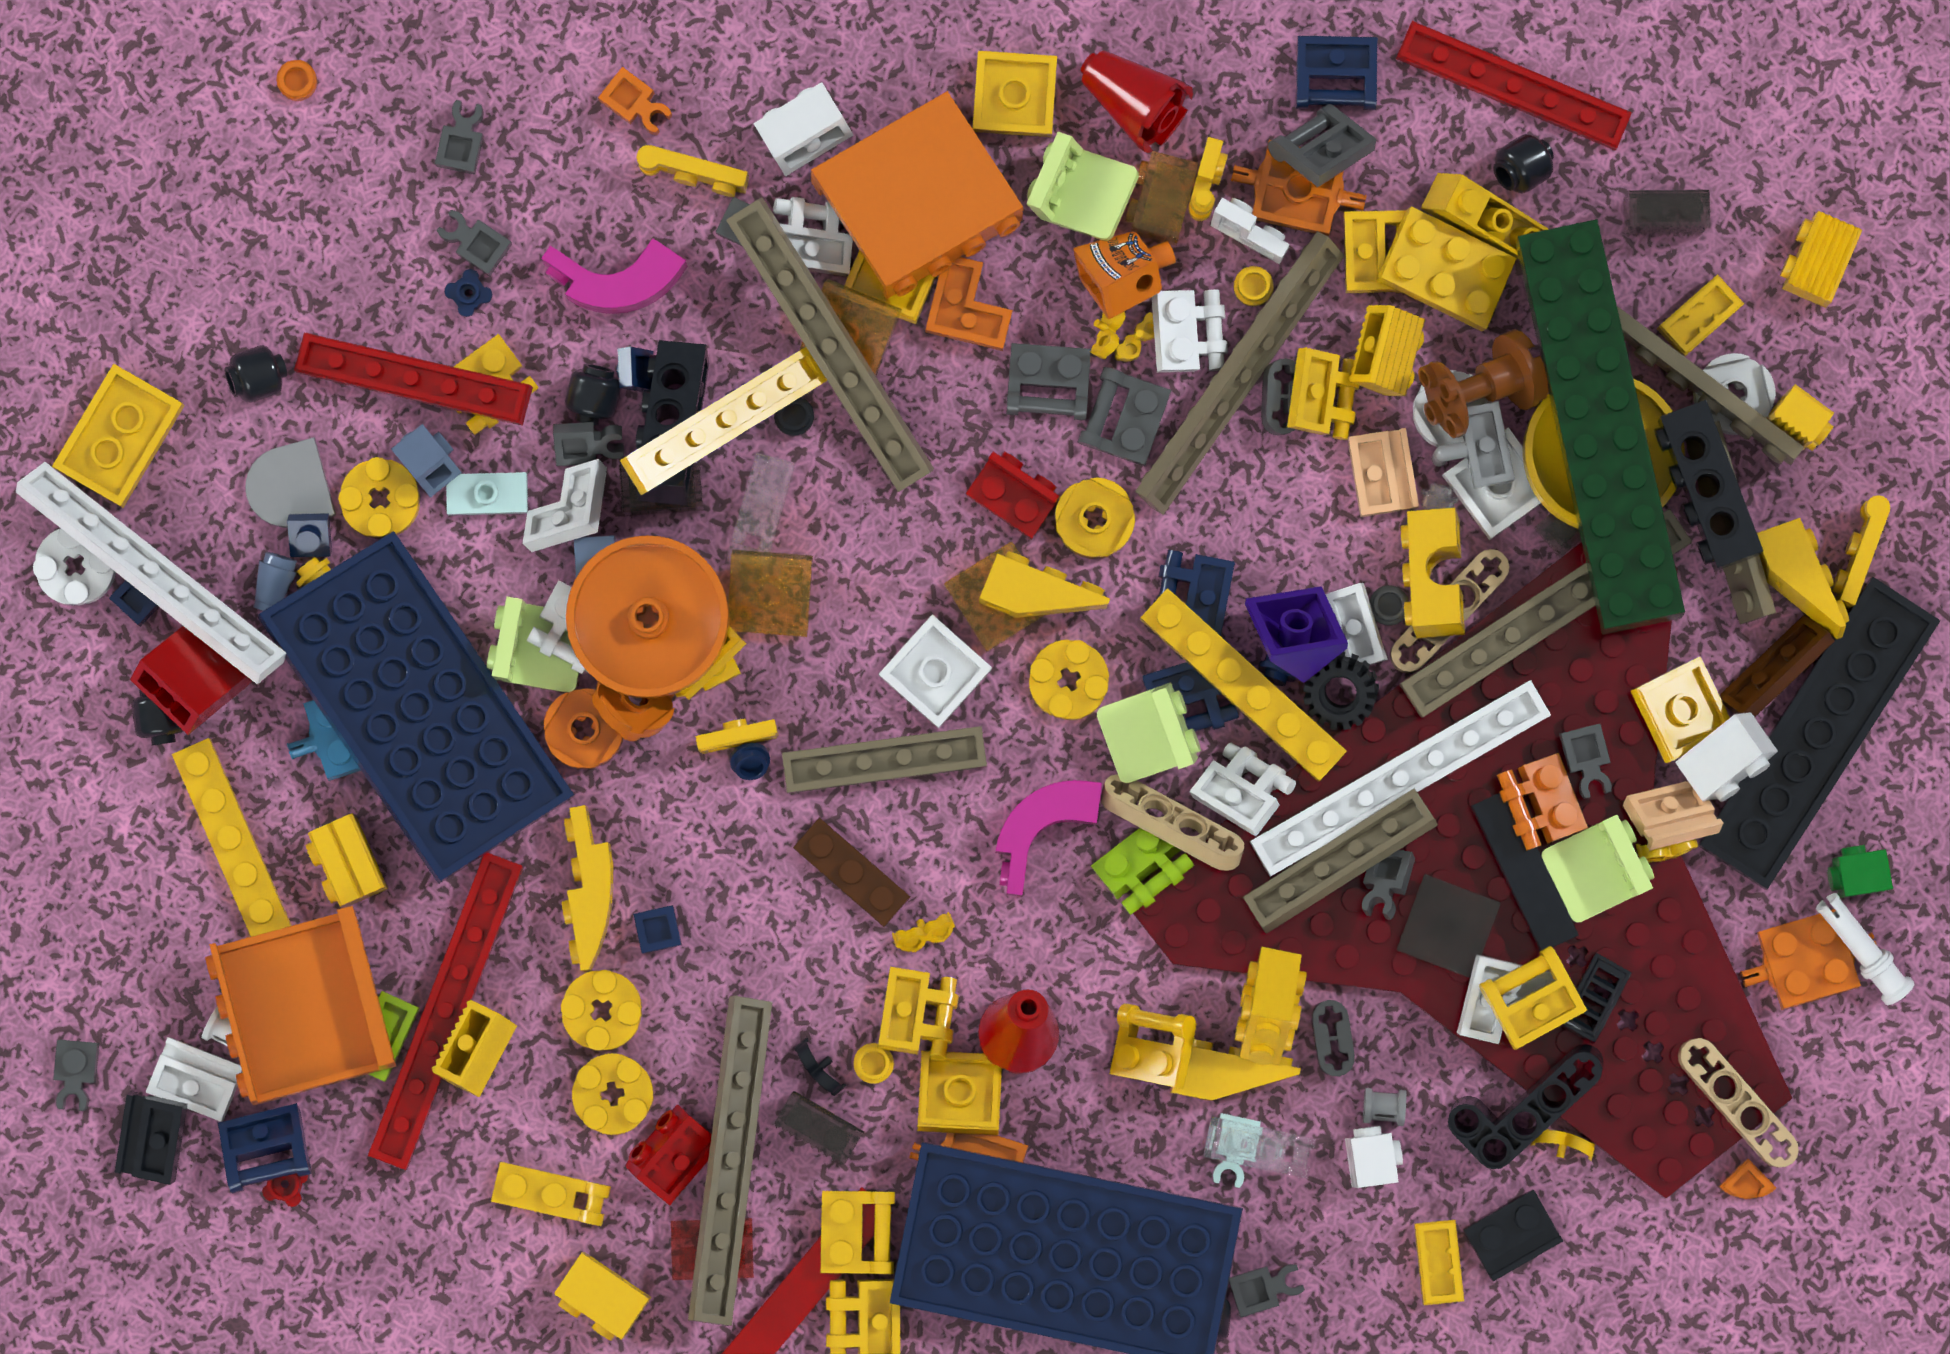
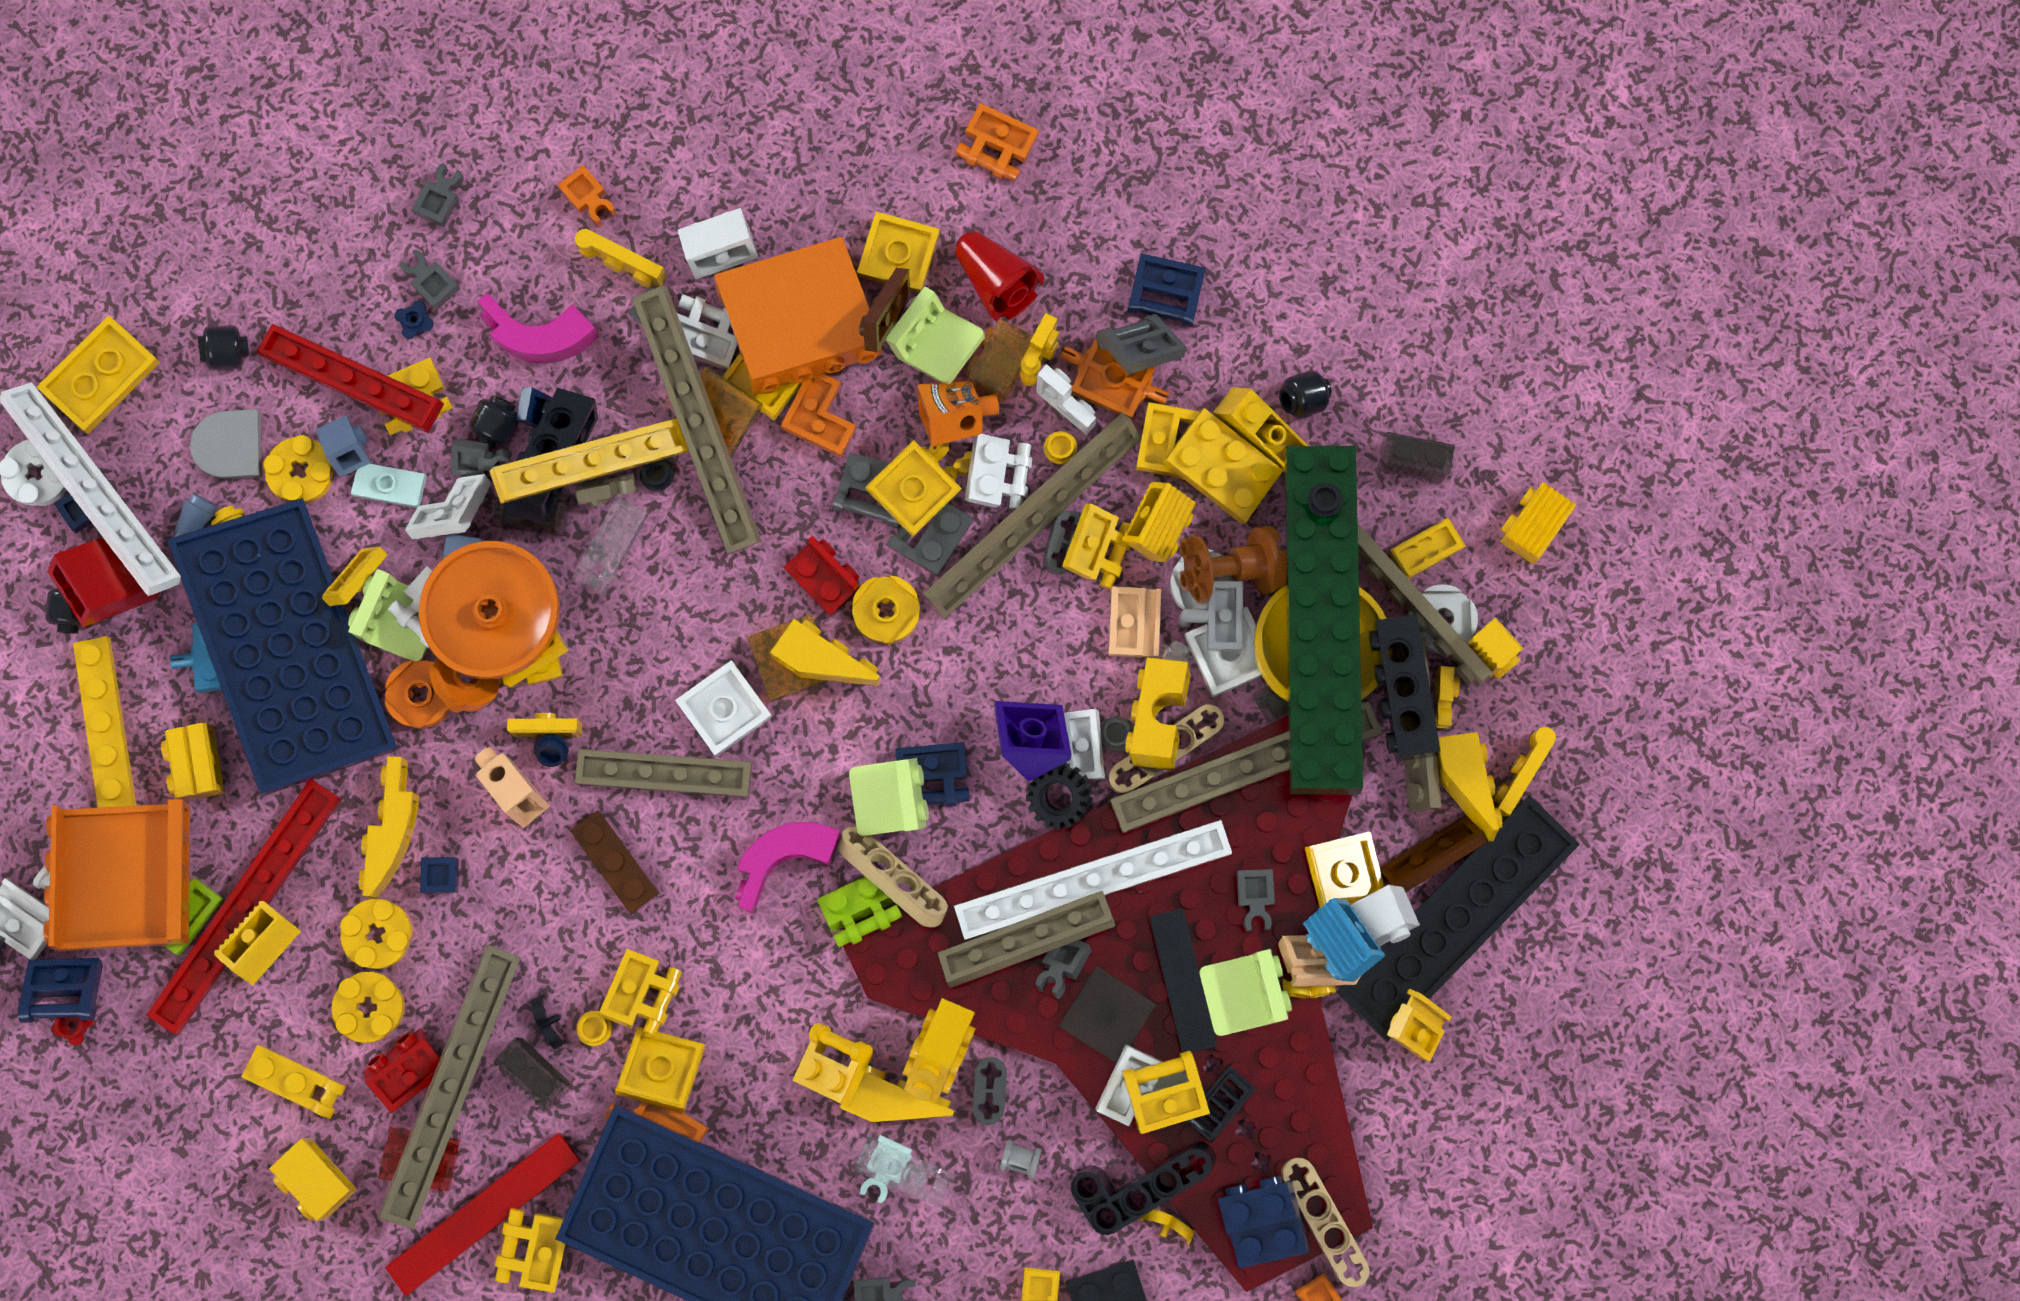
camera: 10 degrees right, 5 degrees down
(296, 80) = (319, 123): orange tile -> none
(309, 535) = (233, 487): dark blue plate -> none
(478, 609) = (354, 576): none -> yellow plate
(722, 820) = (510, 787): none -> light nougat torso
(738, 449) = (597, 491): none -> dark tan plate
(770, 592) = (600, 613): clear yellow plate -> none
(843, 1232) = (532, 1170): yellow plate -> none
(916, 937) = (670, 926): yellow piece -> none
(1019, 1032) = (723, 1028): red cone -> none
(1020, 170) = (885, 310): none -> reddish brown plate
(1075, 657) = (817, 728): yellow plate -> none
(1096, 372) = (913, 488): none -> yellow plate
(1208, 585) = (964, 694): dark blue plate -> none
(1235, 797) = (951, 868): white plate -> none
(1243, 685) = (978, 773): yellow plate -> none
(1274, 673) = (1007, 771): dark blue plate -> none
(1373, 1157) = (999, 1202): white brick -> none
(1514, 85) = (1310, 331): red tile -> none
(1551, 799) = (1218, 925): orange plate -> none
(1576, 292) = (1325, 500): none -> black plate
(1670, 1117) = (1264, 1222): none -> dark blue plate
(1695, 787) = (1343, 940): none -> dark azure brick
(1754, 475) = (1445, 689): none -> yellow plate
(1799, 864) = (1418, 1025): none -> yellow plate
(1804, 962) = (1410, 1110): orange plate -> none
(1860, 872) = (1469, 1044): green brick -> none
(1875, 963) = (1467, 1125): white pin -> none

